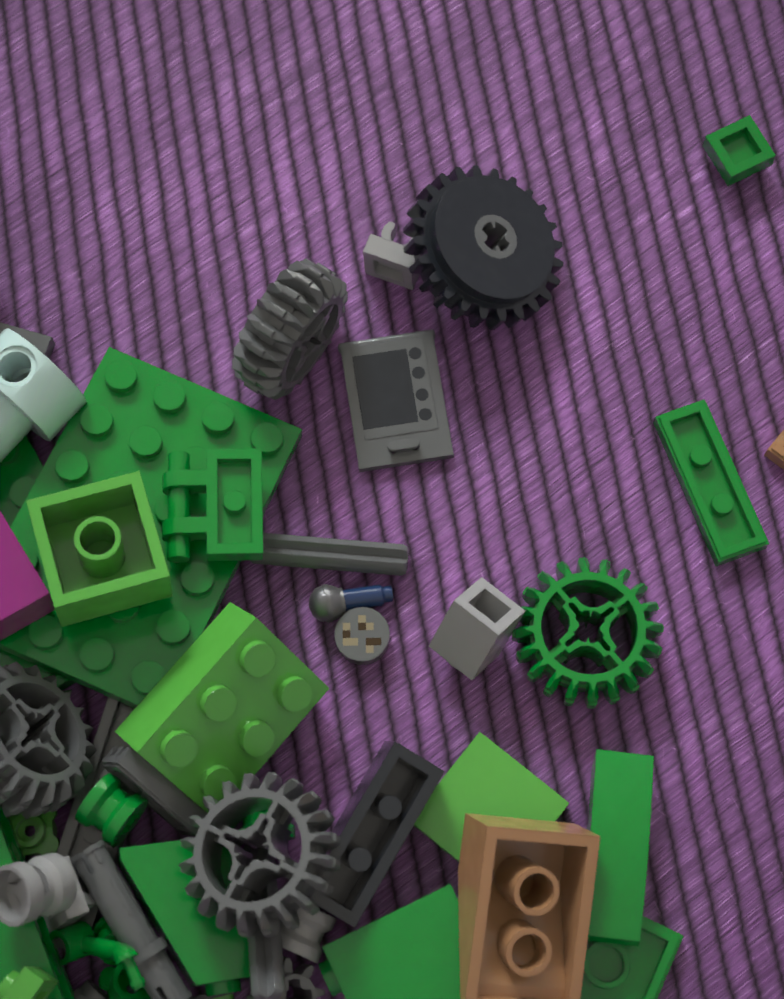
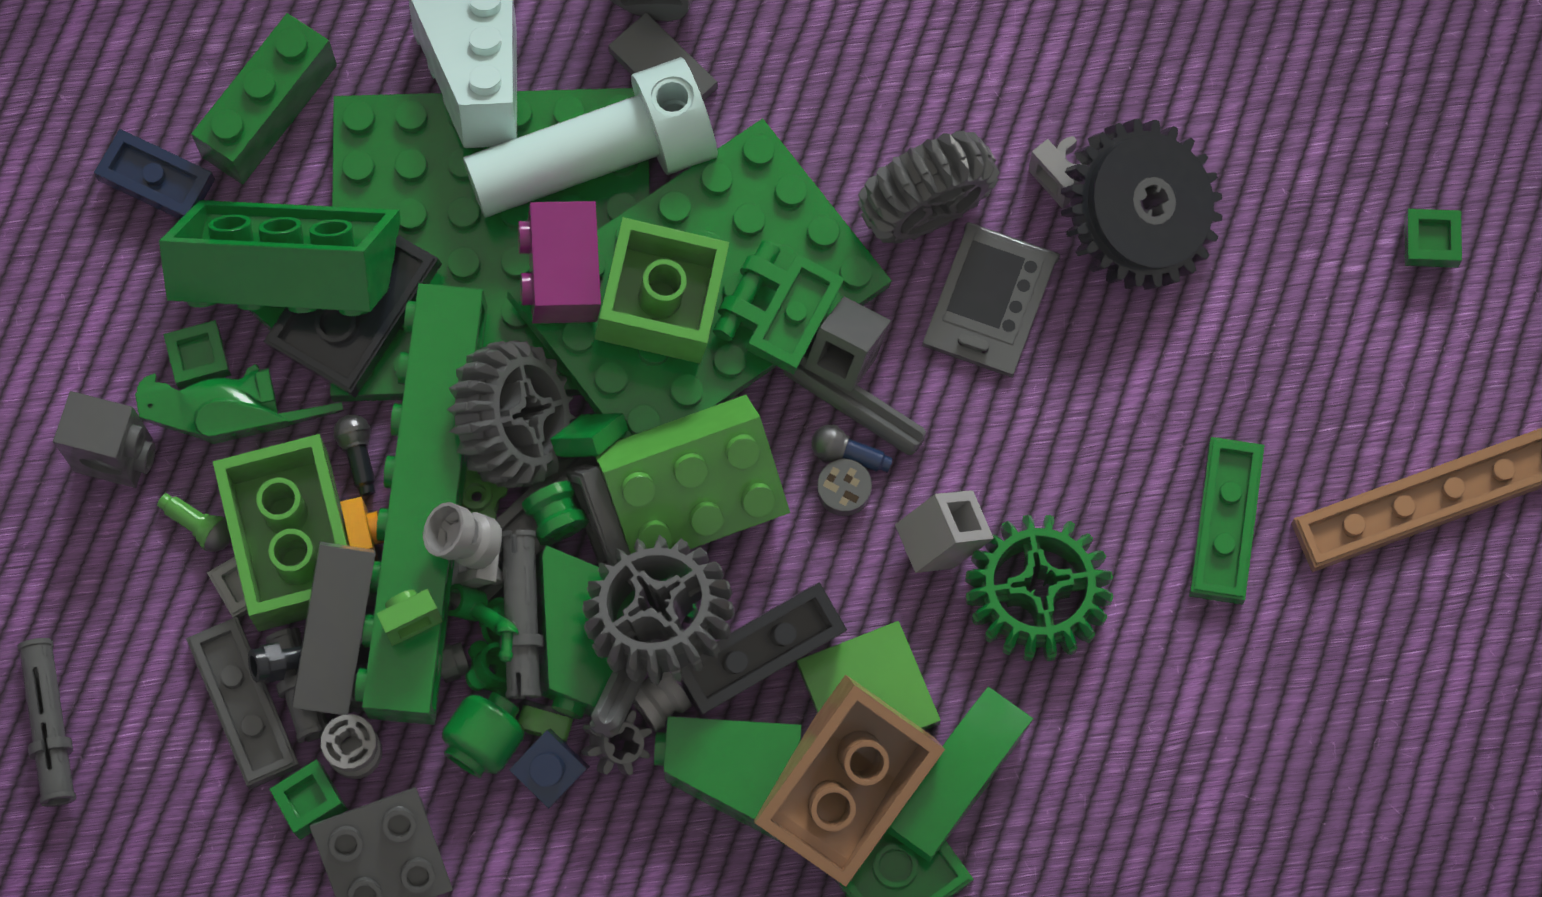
camera: 25 degrees right, 0 degrees up
(105, 719) = (589, 435): none -> green tile
(295, 506) = (847, 344): none -> dark grey brick

